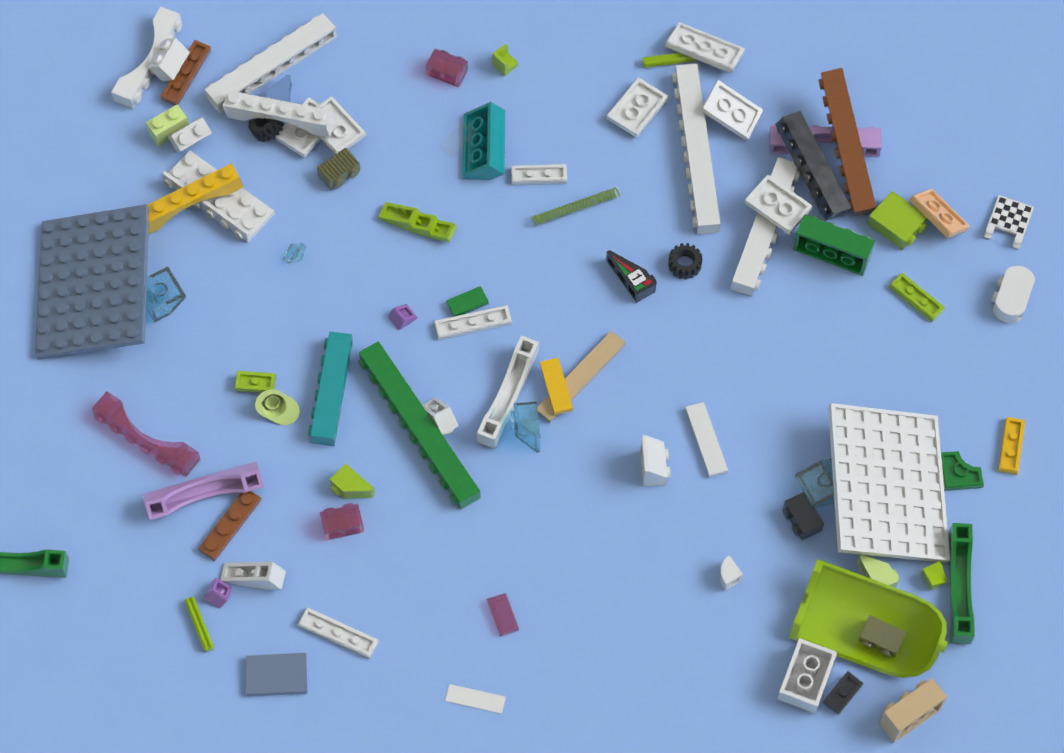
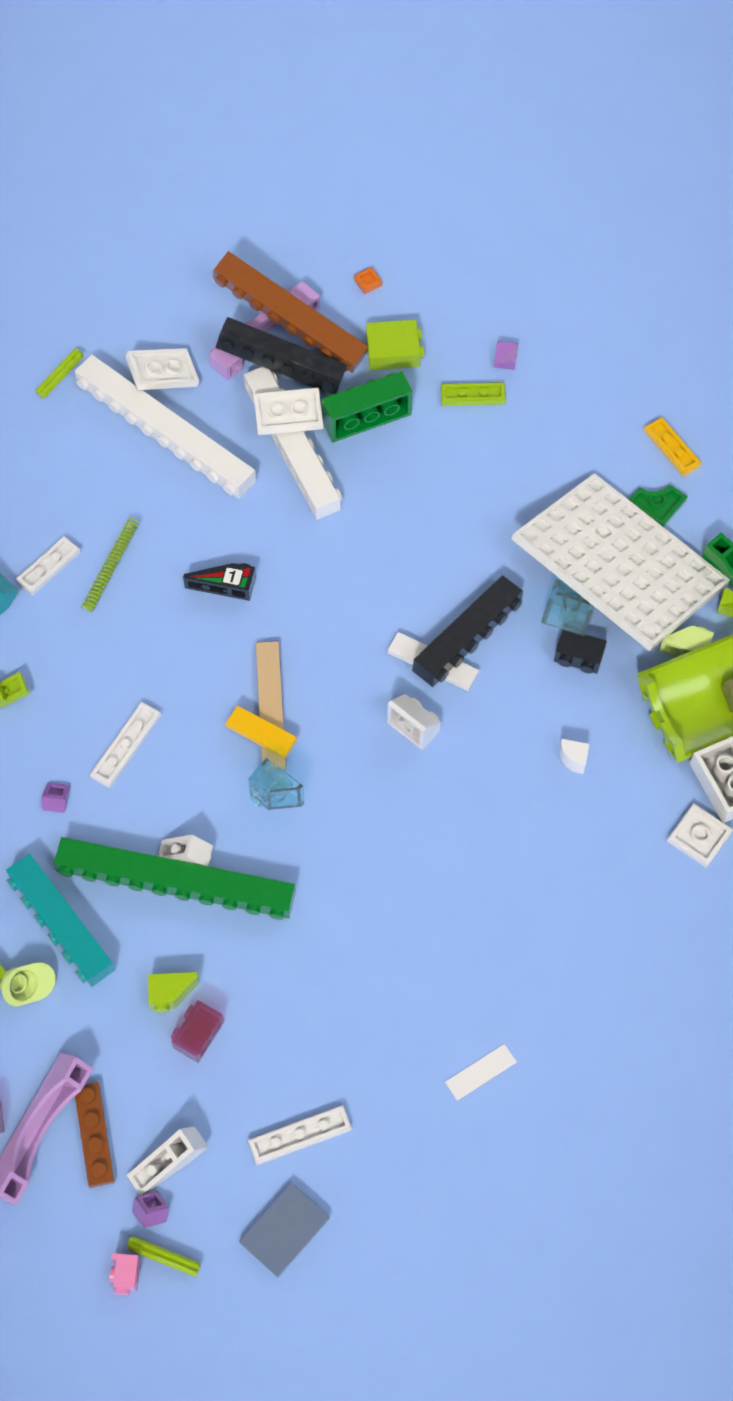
camera: 45 degrees left, 0 degrees up
(169, 612) = (125, 1273): none -> bright pink brick
(467, 301) = (102, 731): green tile -> none
(502, 614) = (426, 974): clear pink tile -> none
(516, 375) = (224, 776): white arch -> none
(637, 107) = (76, 435): white plate -> none
(688, 251) = (252, 517): black tyre -> none
(705, 47) = (81, 337): white tile -> none
(745, 439) = (467, 631): none -> black brick
(755, 693) = (700, 835): none -> white tile
(929, 164) = (368, 280): none -> orange tile
(939, 213) = (420, 310): light nougat tile -> none
(965, 291) = (506, 355): none -> medium lavender slope
(1010, 217) = (475, 269): flag -> none
(1013, 294) = (546, 325): white brick -> none

